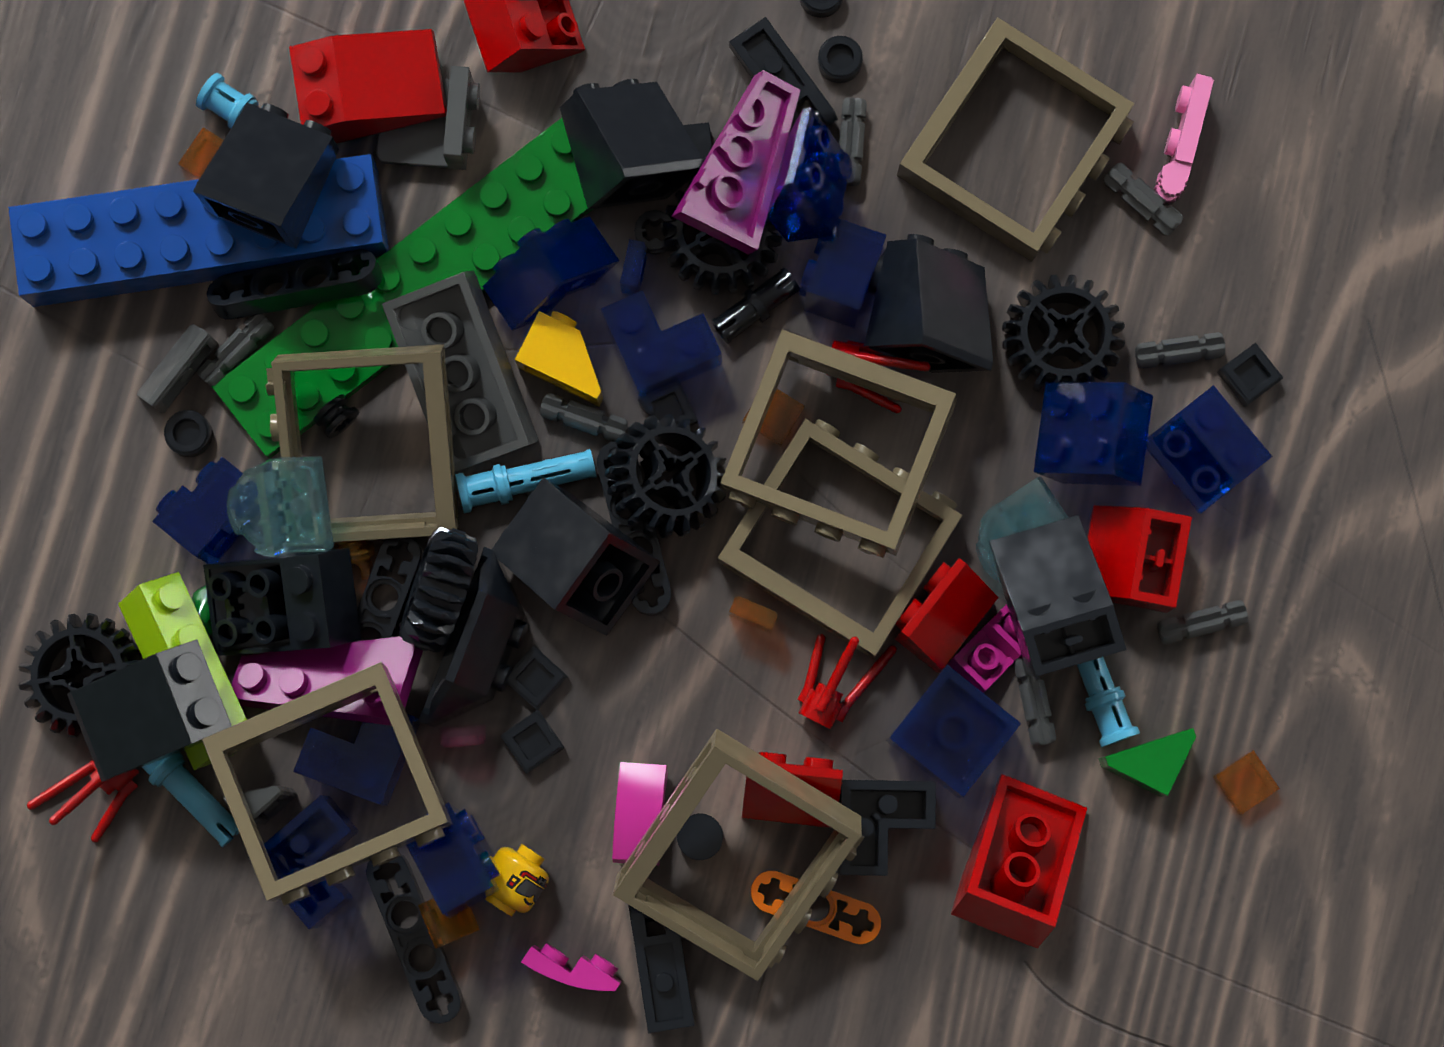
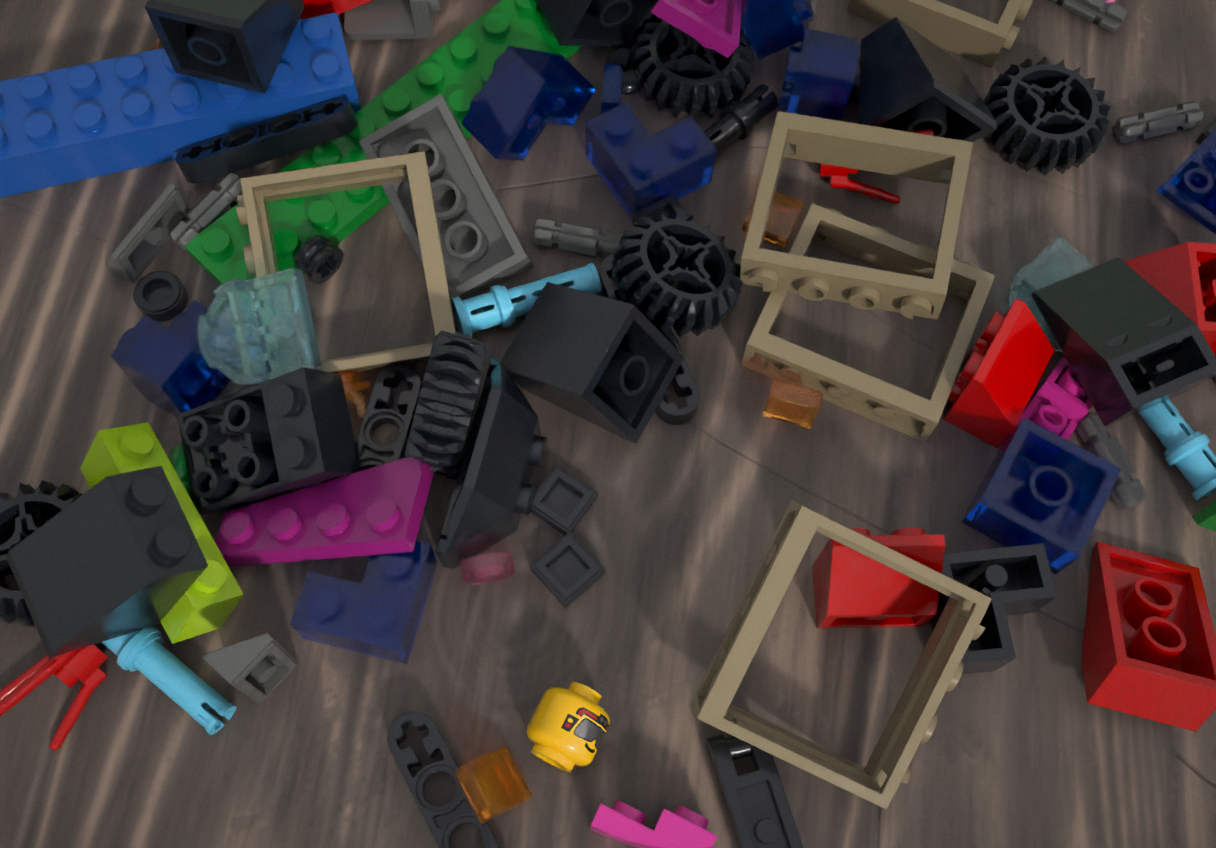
camera: 10 degrees left, 15 degrees down
(298, 712) = (282, 542): dark tan window -> none
(306, 841) = (300, 732): clear blue brick -> none
(456, 864) = (490, 702): clear blue brick -> none
(559, 356) = (548, 182): yellow slope -> none
(638, 803) = (701, 623): dark pink slope -> none
(700, 837) = (778, 654): black tile -> none
(824, 702) = (886, 488): red plant -> none
(844, 929) = (968, 710): orange beam -> none
(1093, 433) = (1108, 185): clear blue brick -> none

